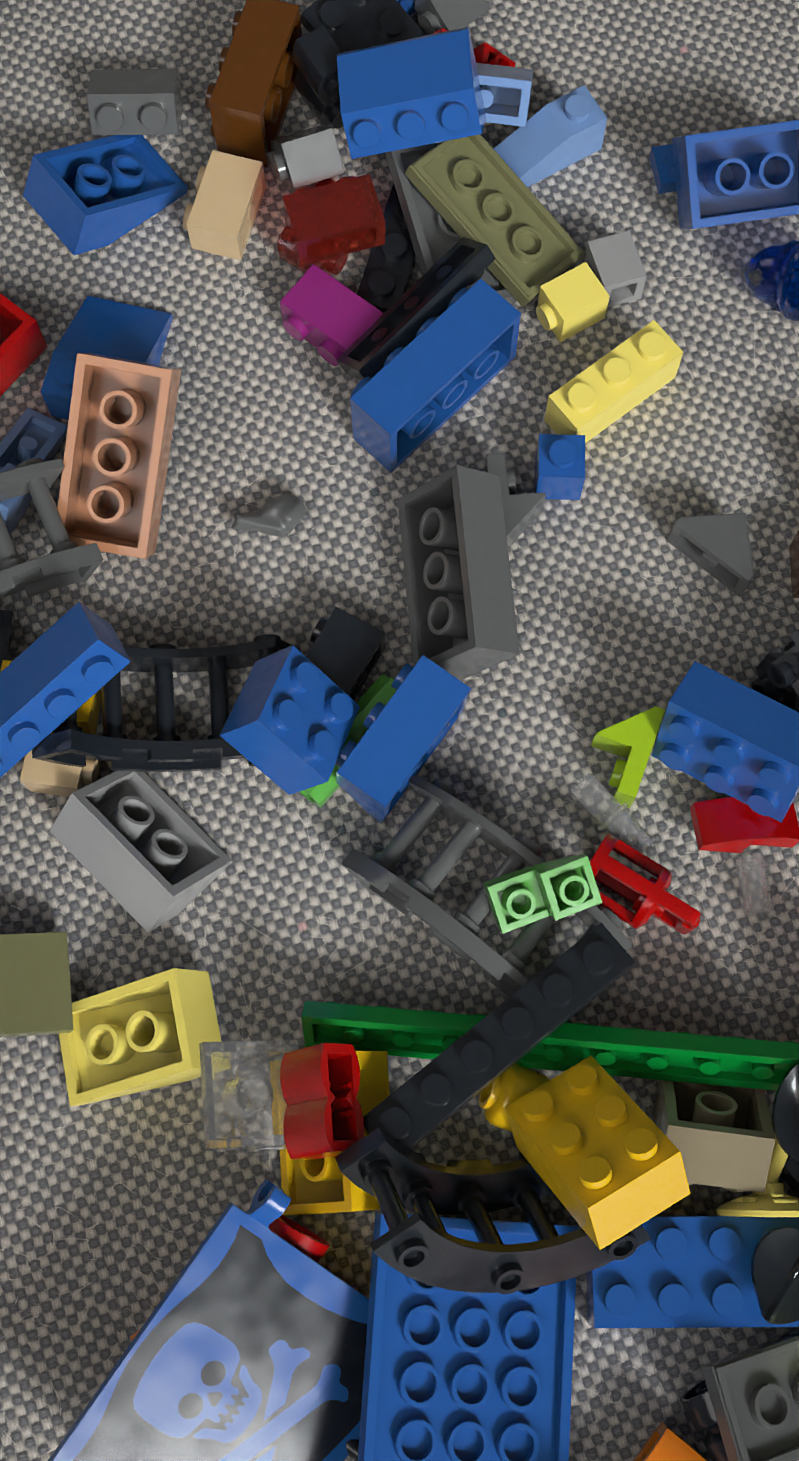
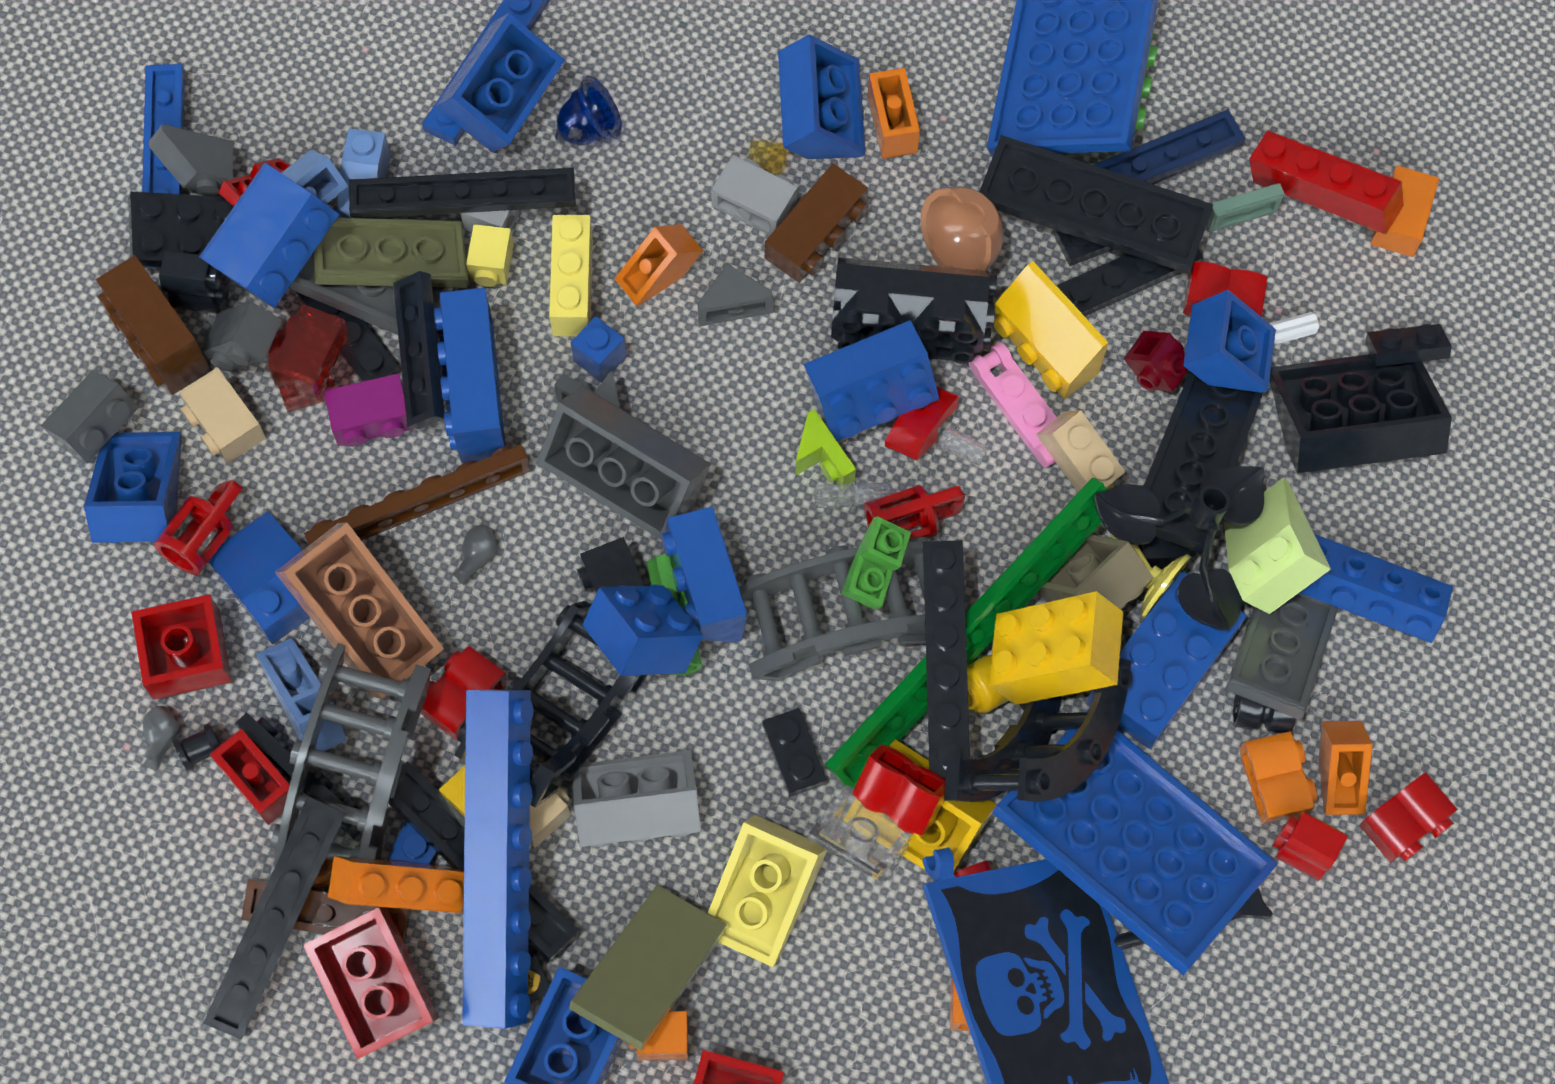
camera: 55 degrees left, 5 degrees down
(120, 266) = (206, 517): none -> red piece
(134, 606) = (447, 696): none -> red brick
(291, 434) = (431, 495): none -> reddish brown plate
(303, 960) = (794, 752): none -> black plate
(608, 228) = (462, 193): none -> black tile
(696, 452) = (658, 262): none -> orange slope

